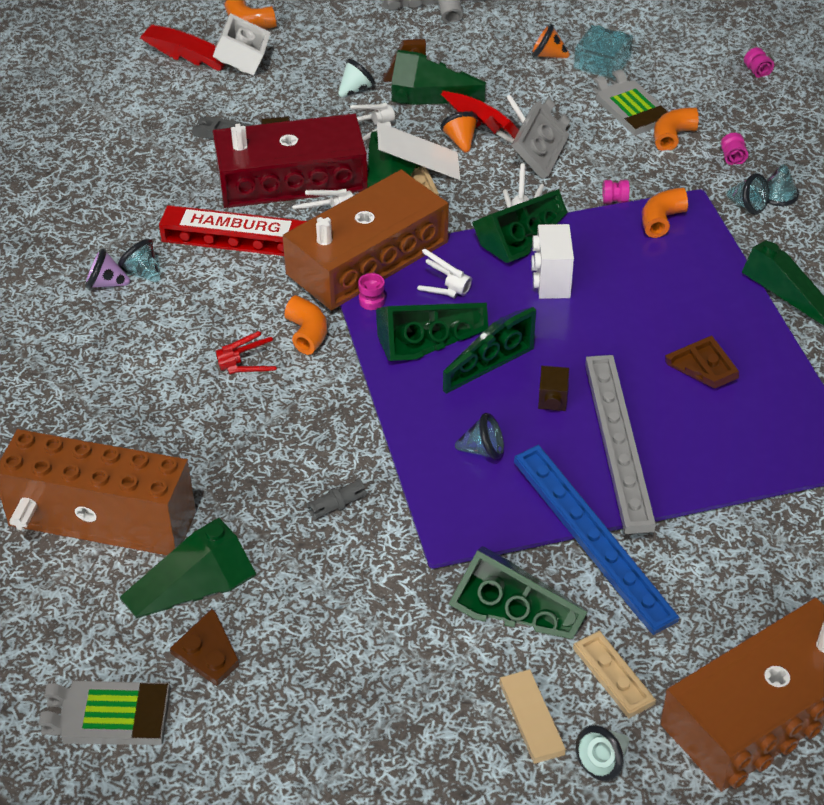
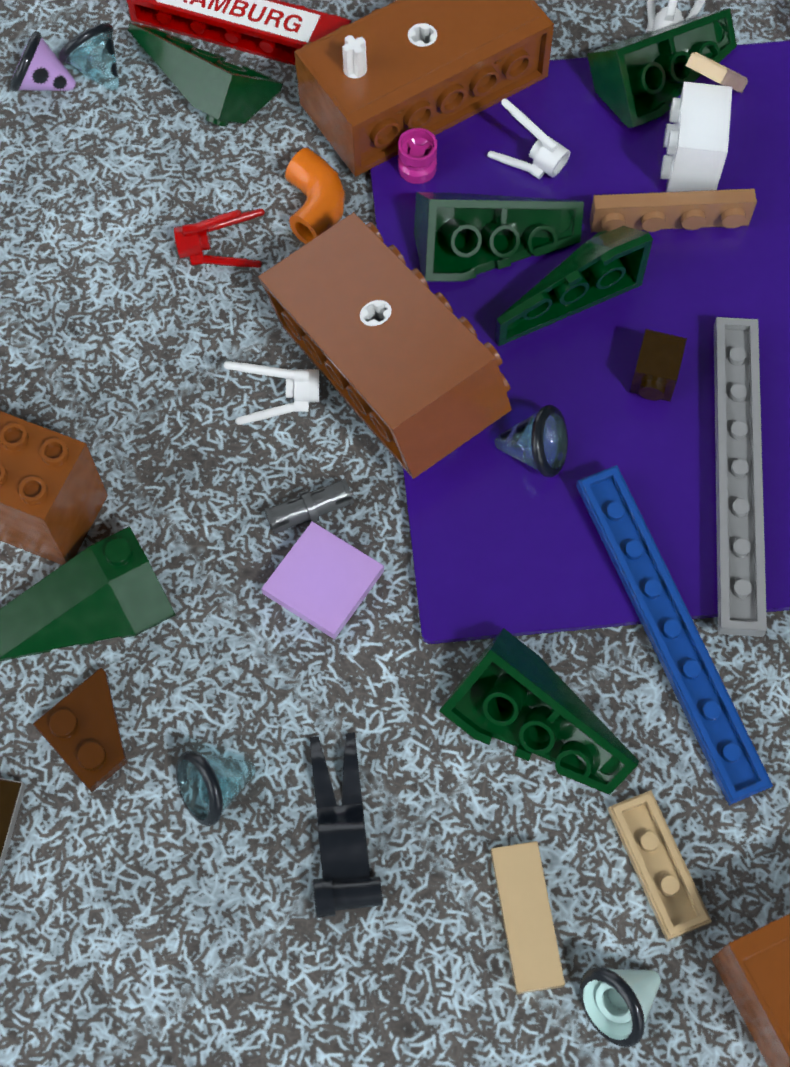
camera: 10 degrees right, 20 degrees up
(222, 267) = (205, 79): none -> dark green wedge
(291, 657) = (210, 783): none -> clear light blue hat
(317, 430) = (300, 385): none -> white plant
(354, 539) = (323, 580): none -> lavender tile
(374, 390) = (388, 343): none -> dark orange piece
(398, 687) = (342, 838): none -> black flag
(548, 301) = (673, 210): none -> medium nougat plate
(552, 216) = (717, 72): none -> tan tile

